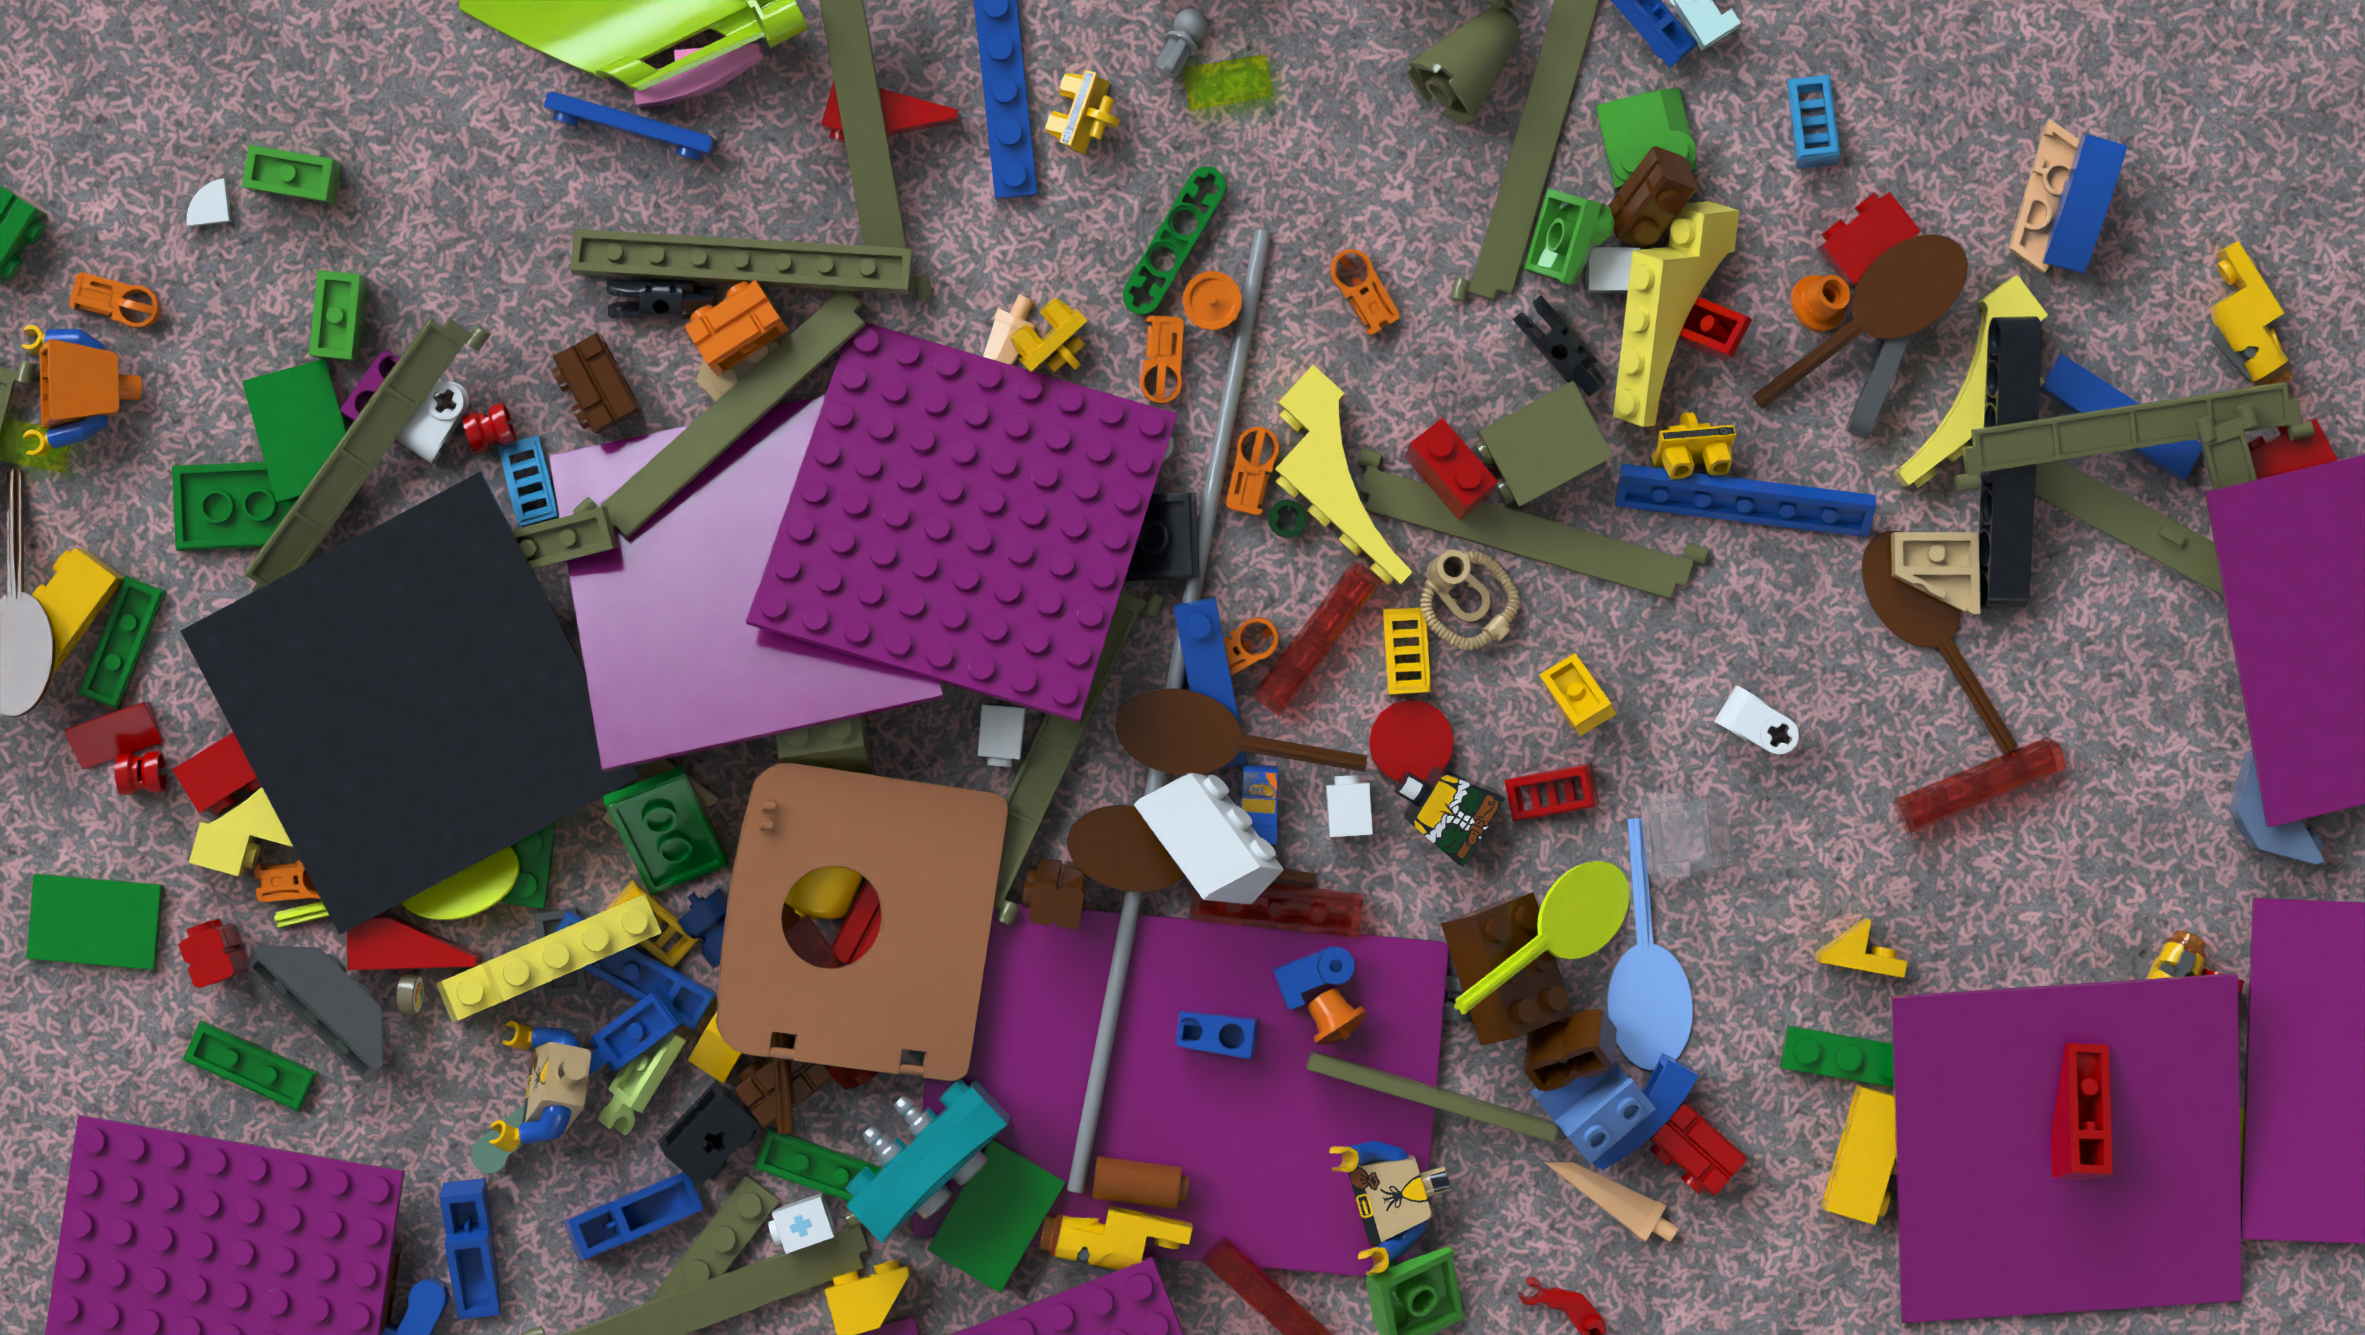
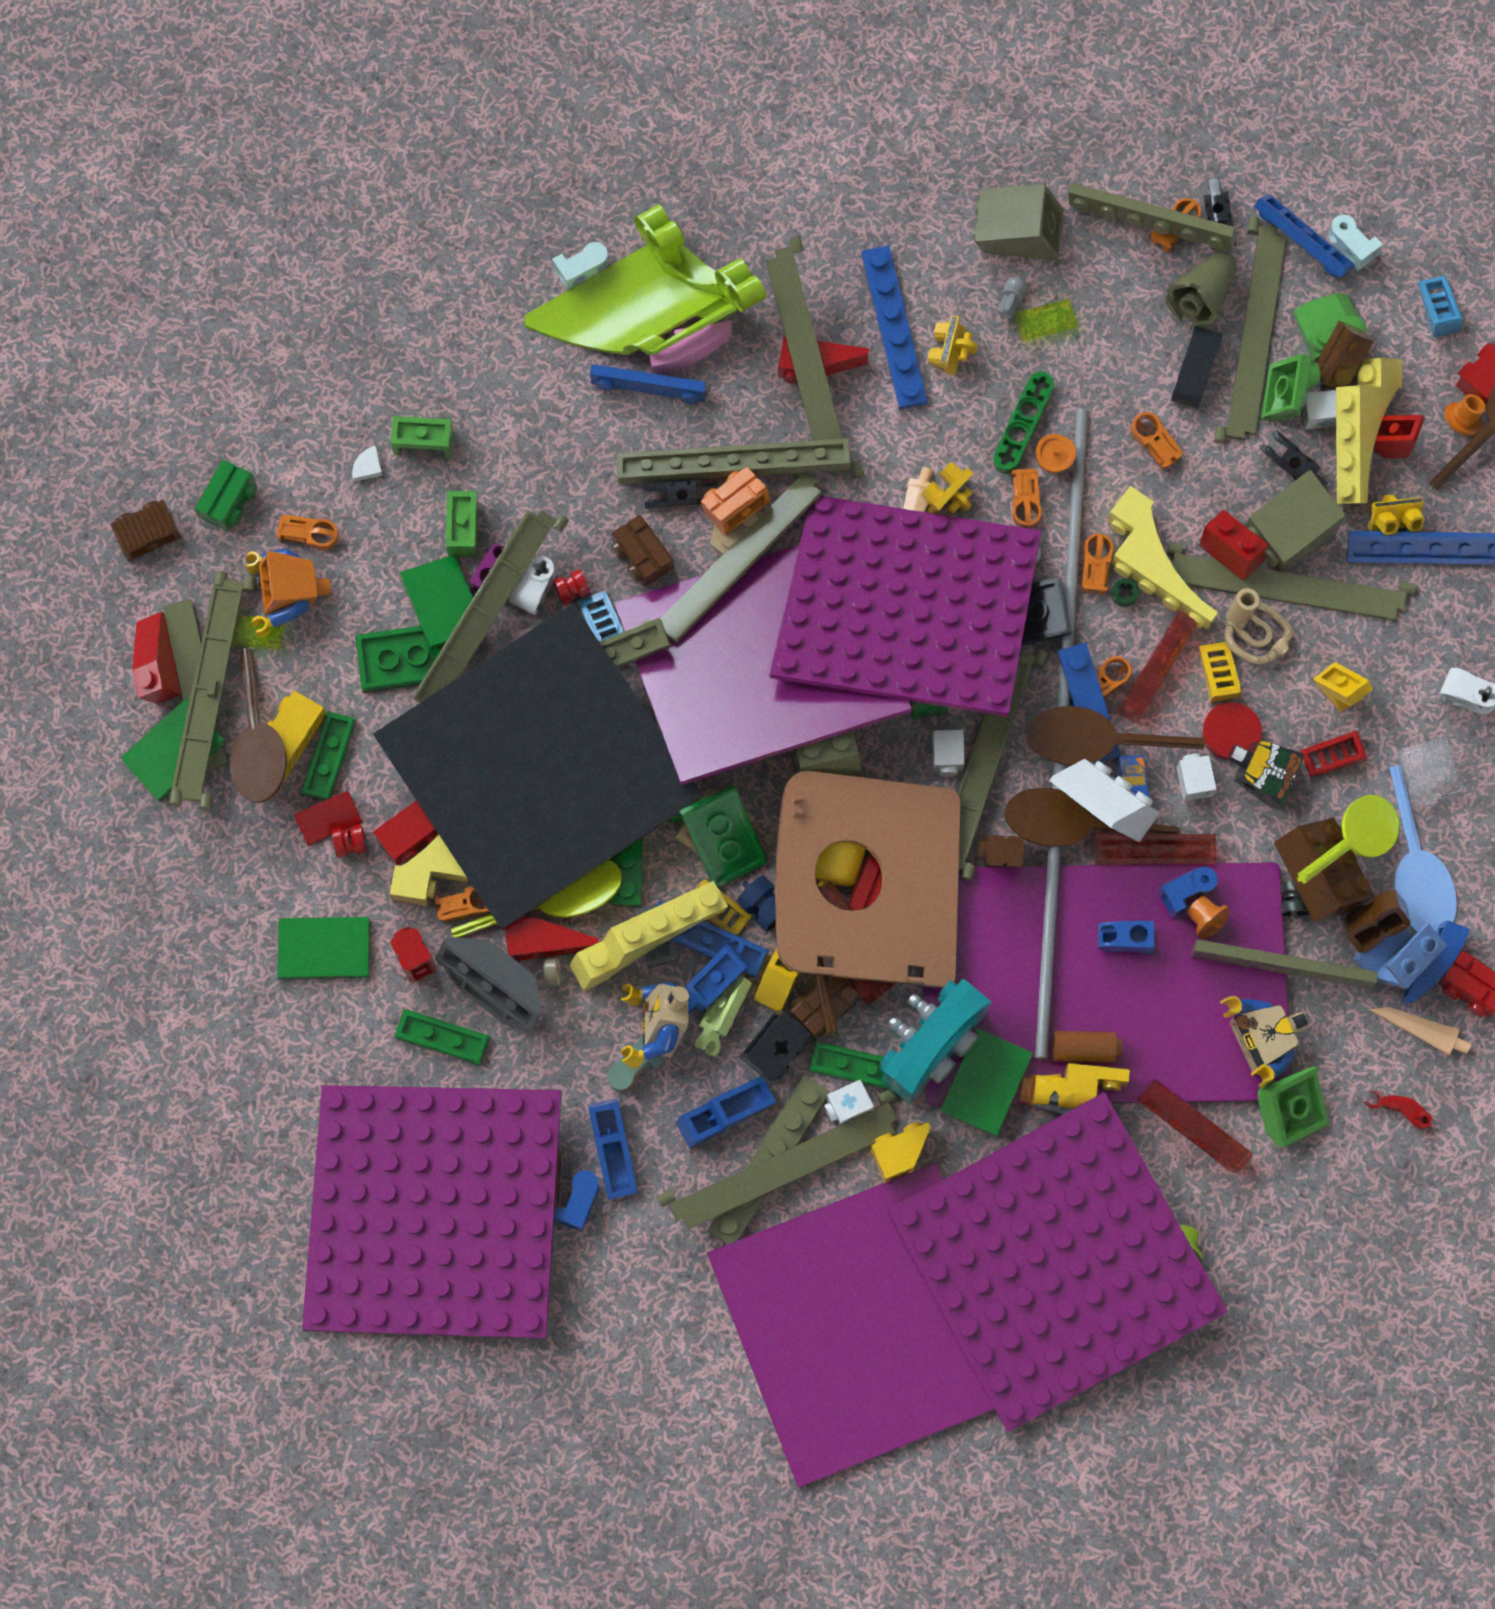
camera: 10 degrees left, 15 degrees down
(1439, 183) = (1196, 367): none -> black beam

